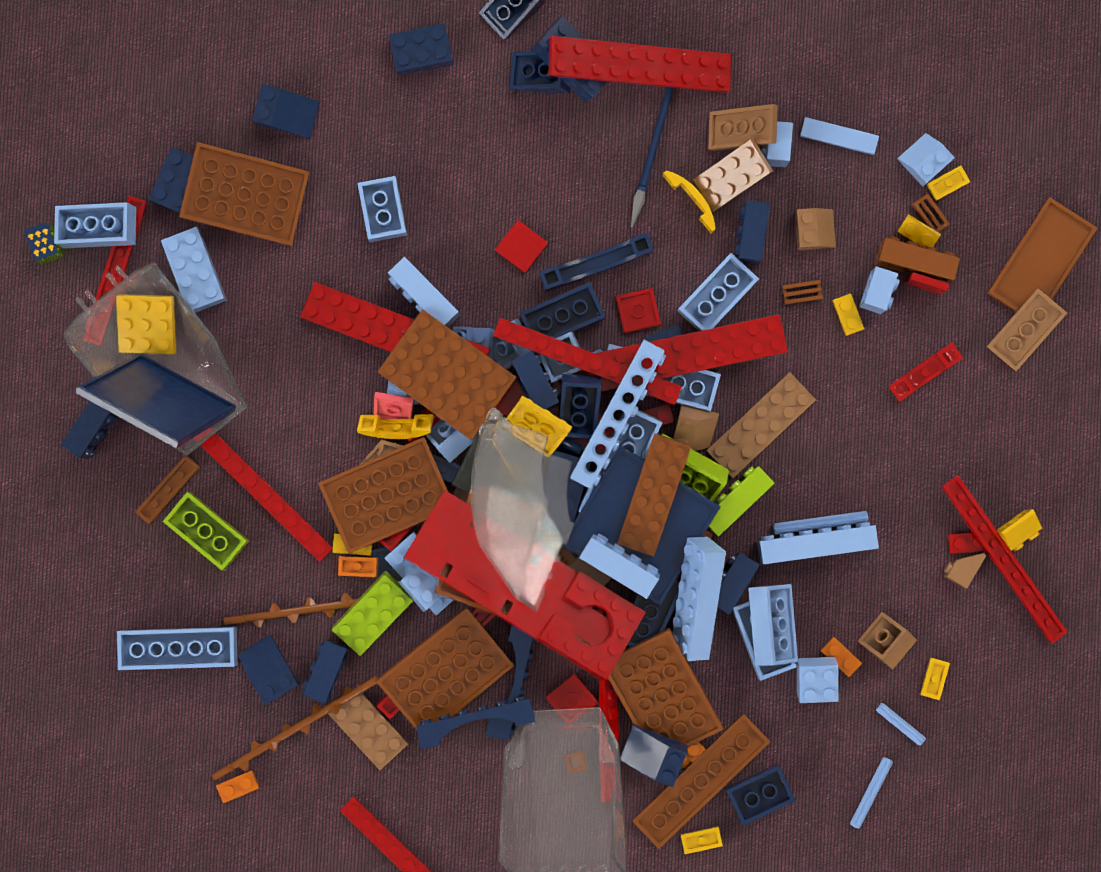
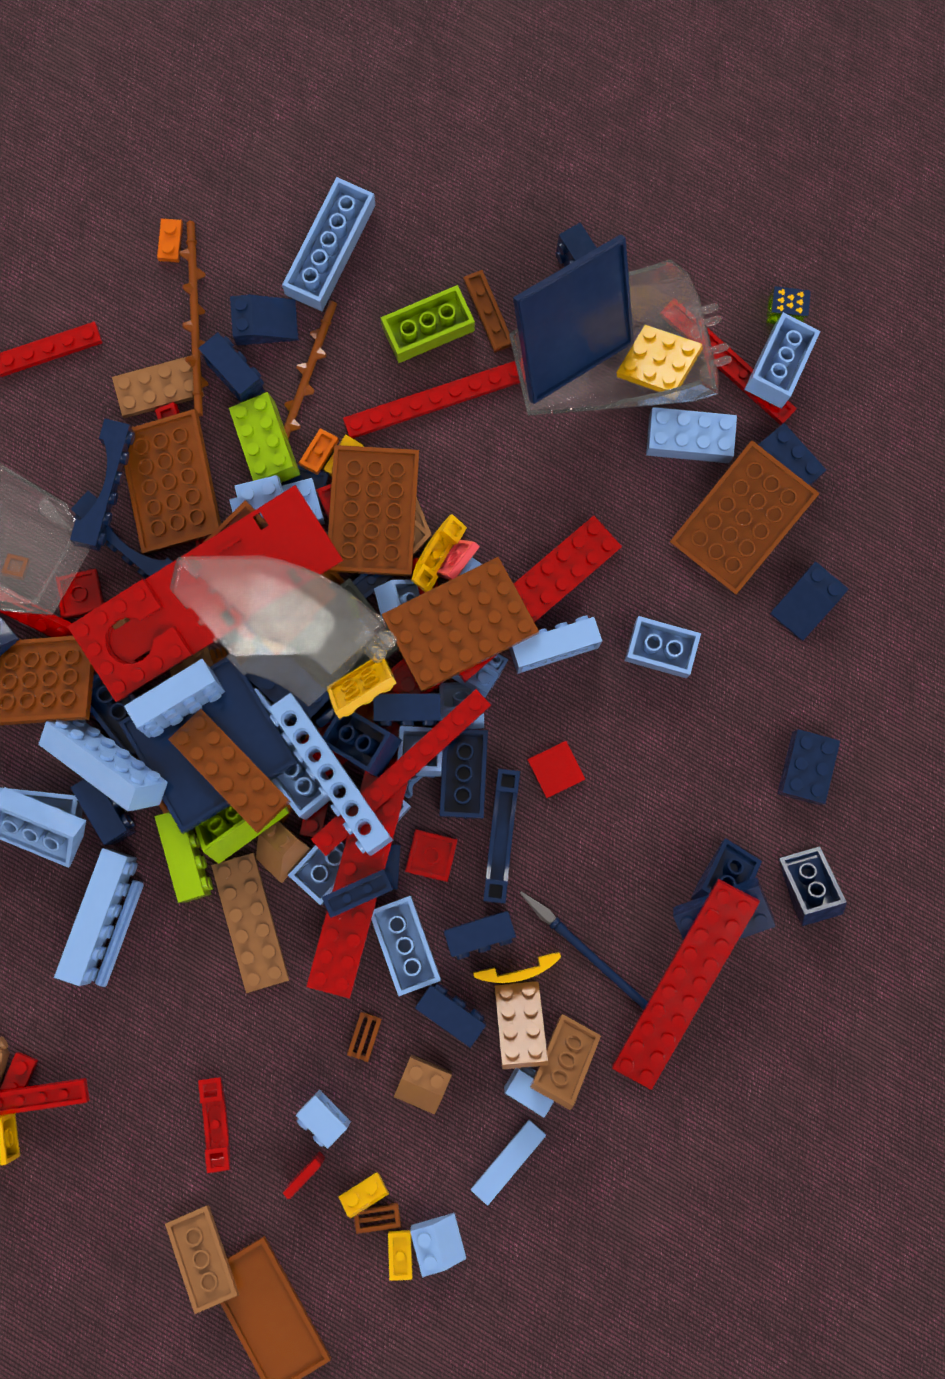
camera: 115 degrees right, 5 degrees down
(680, 240) = (480, 934): none -> dark blue brick
(698, 347) = (357, 893): none -> dark blue plate
(848, 314) = (316, 1073): yellow plate -> none
(911, 258) = (333, 1176): dark orange brick -> none

